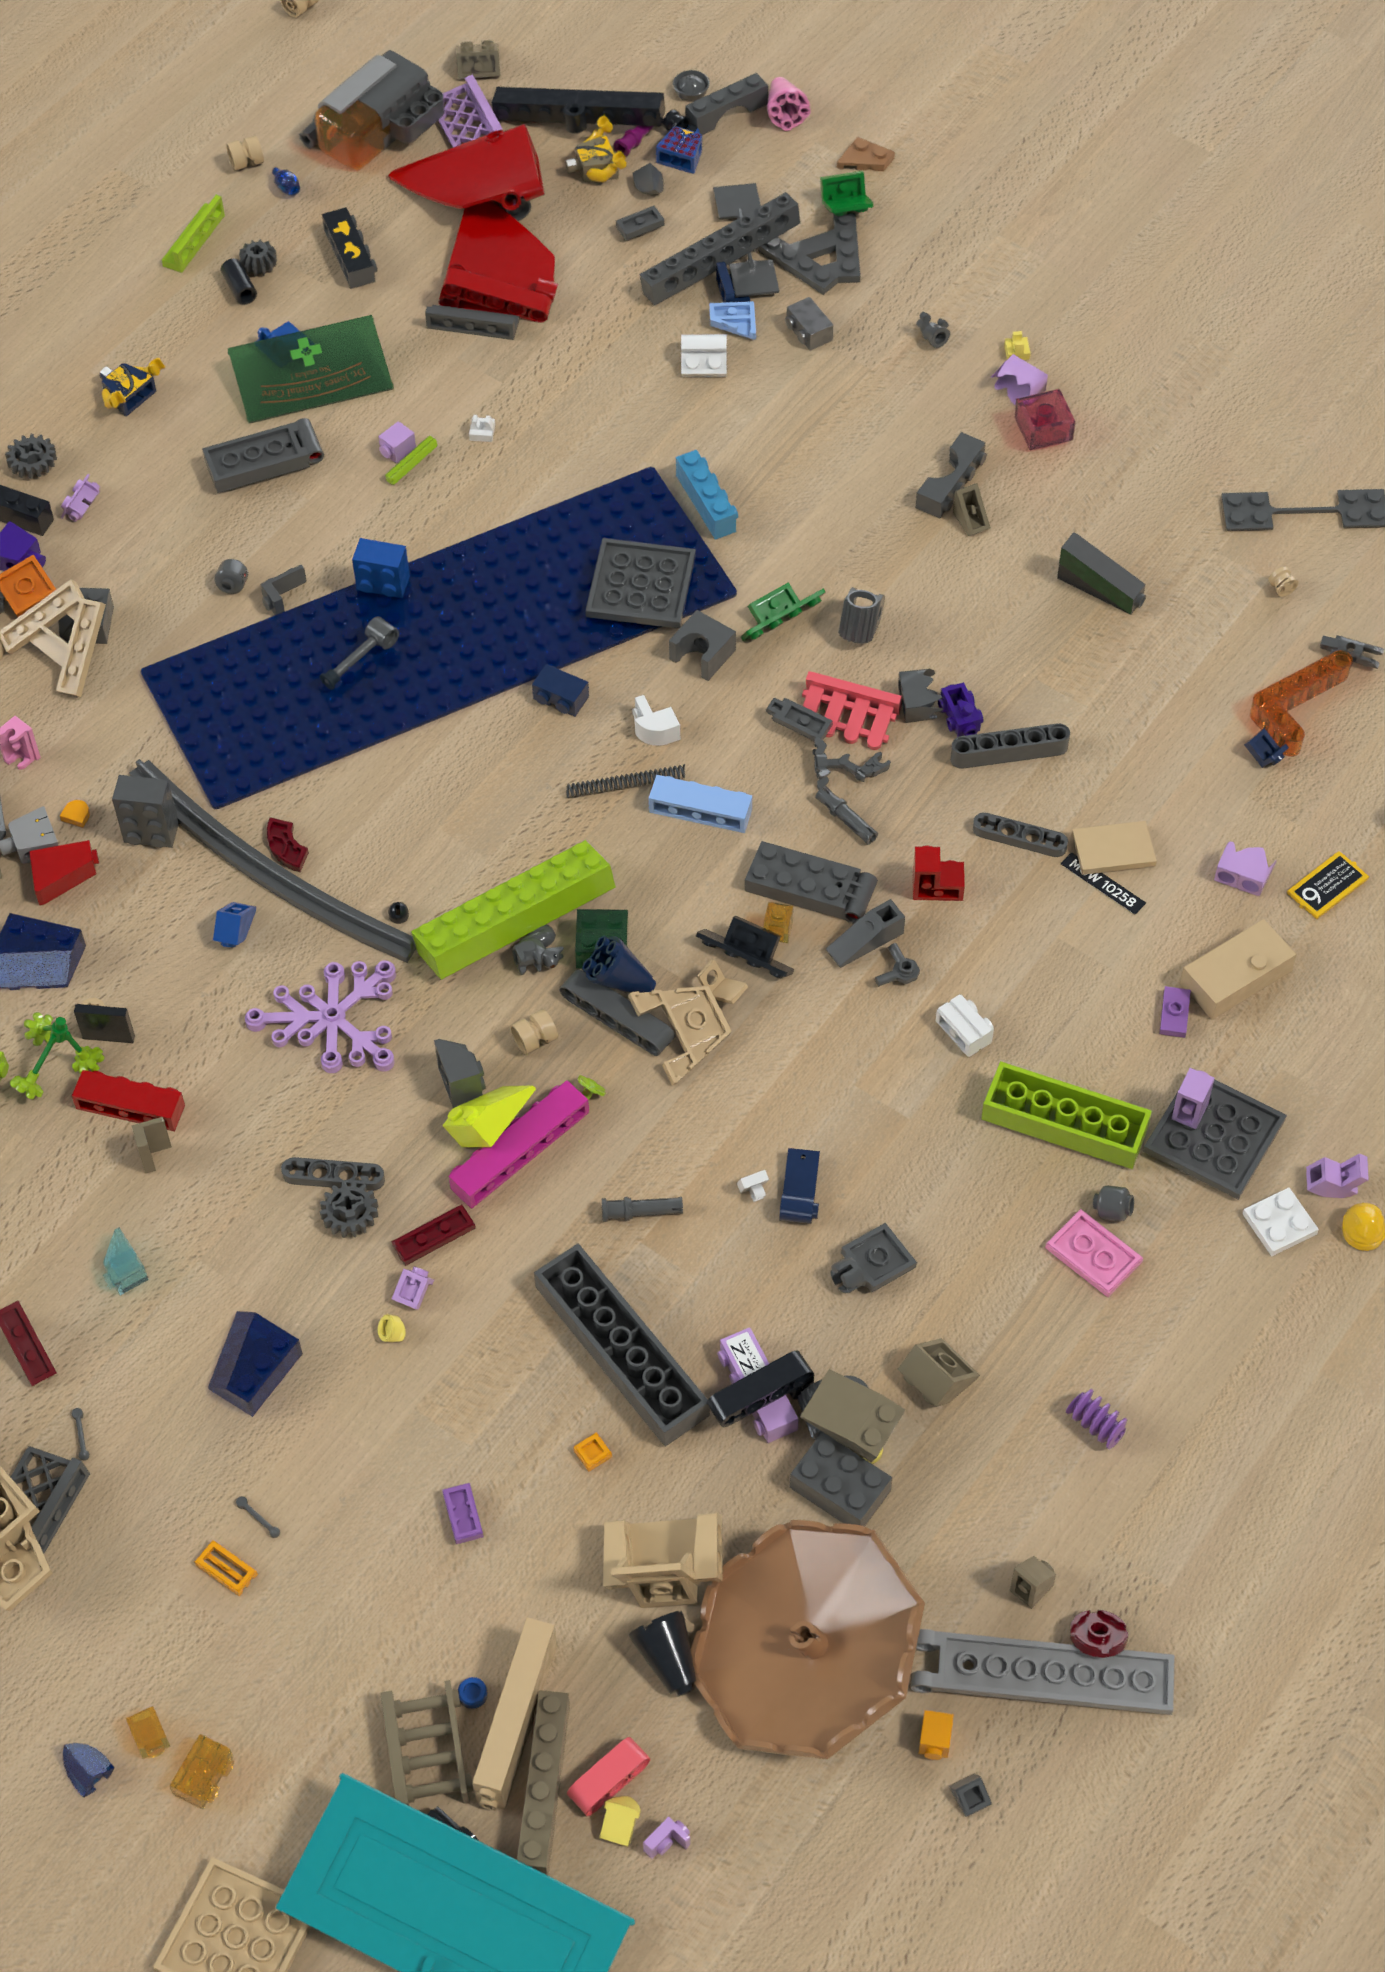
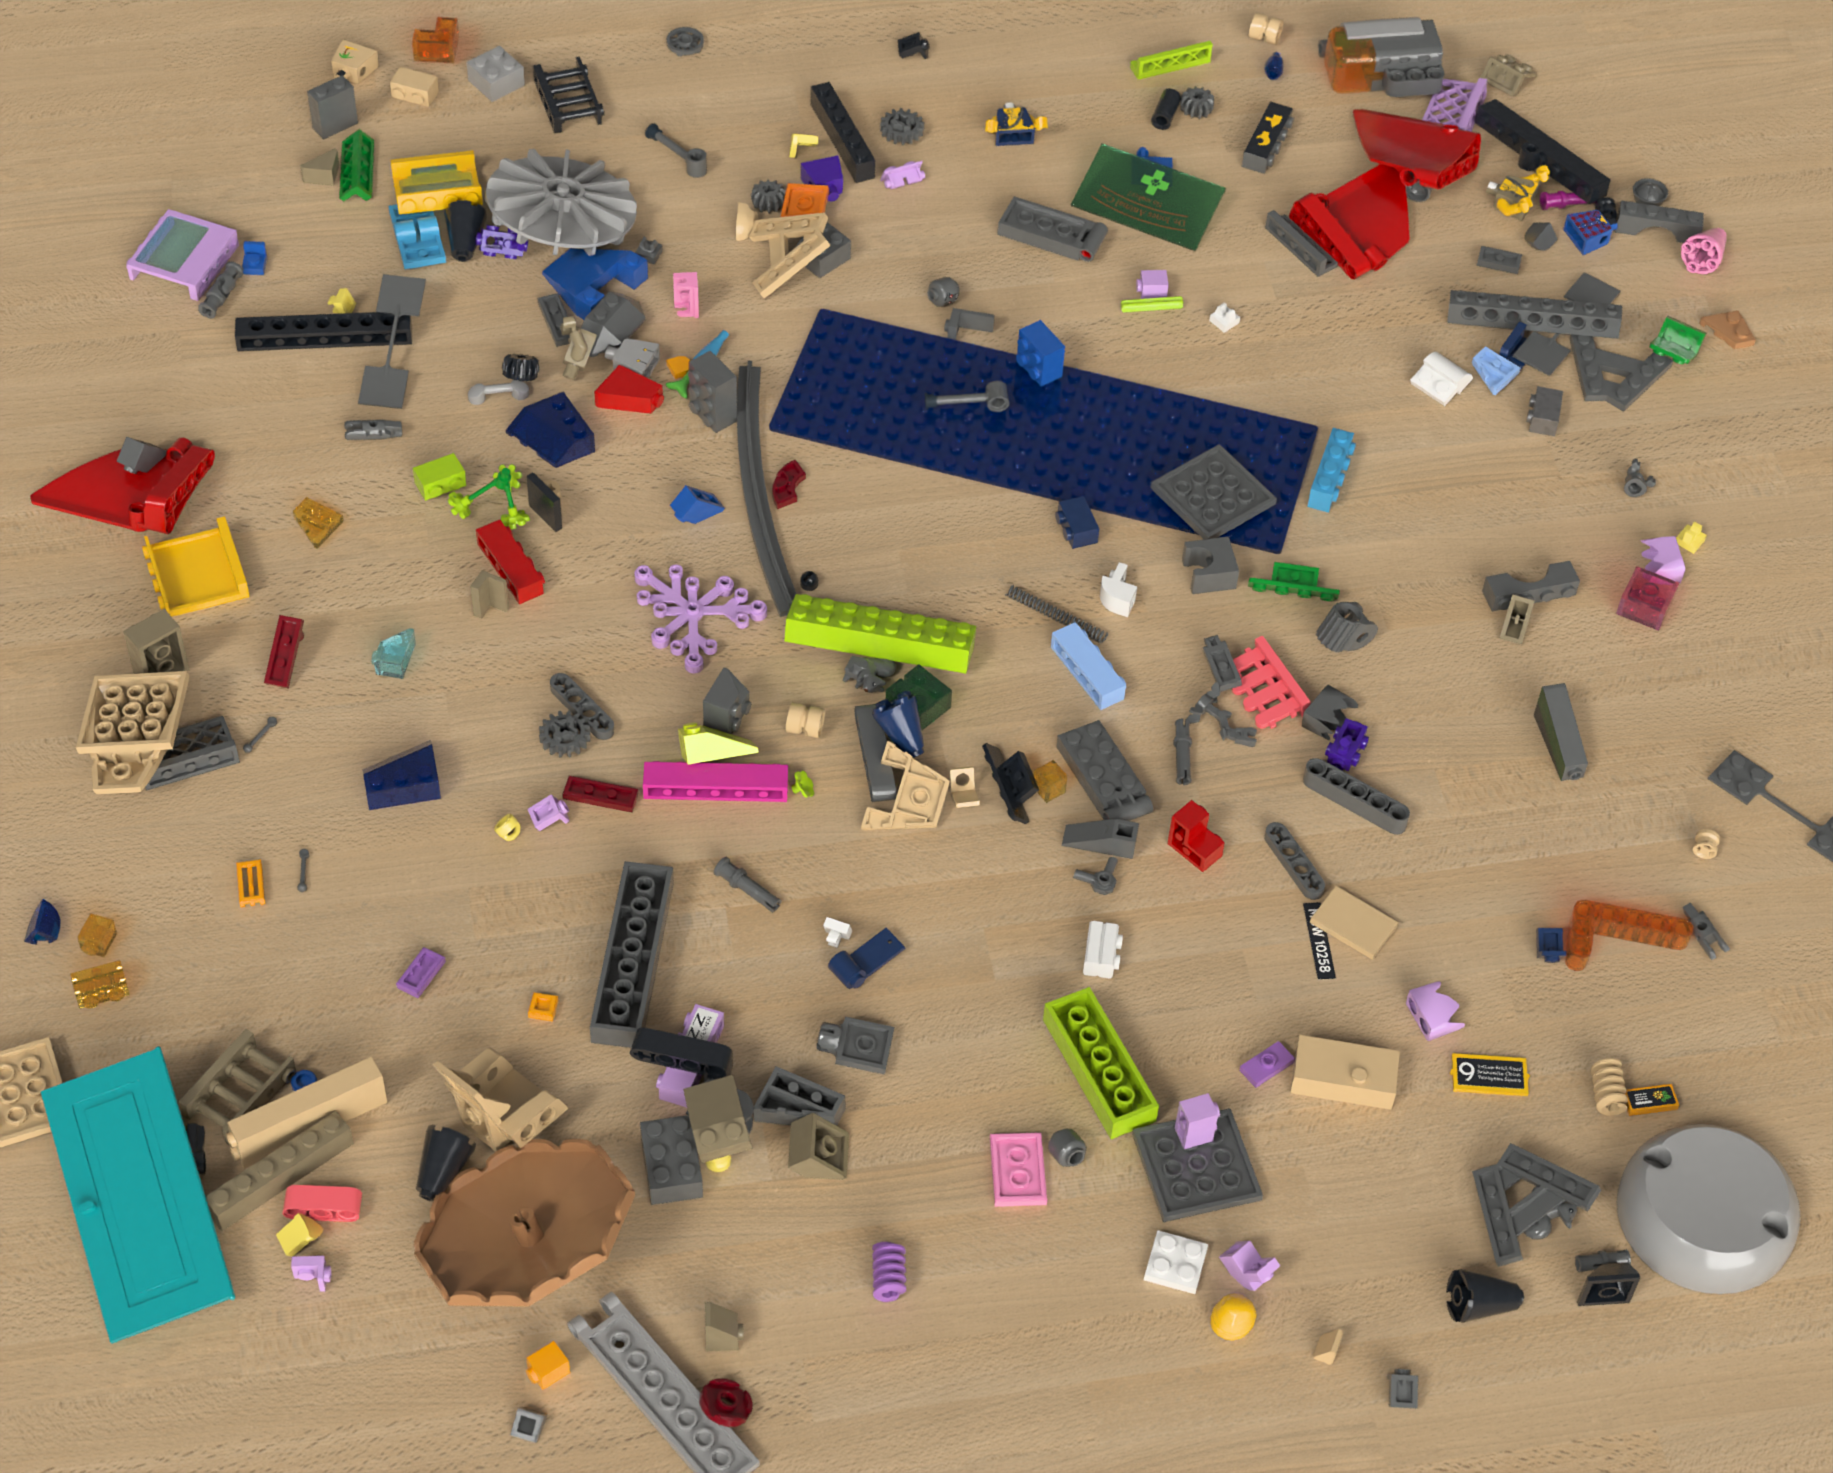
camera: 40 degrees right, 5 degrees down
(92, 795) = (714, 346): none -> piece
(883, 1346) = (793, 1097): none -> dark grey wedge

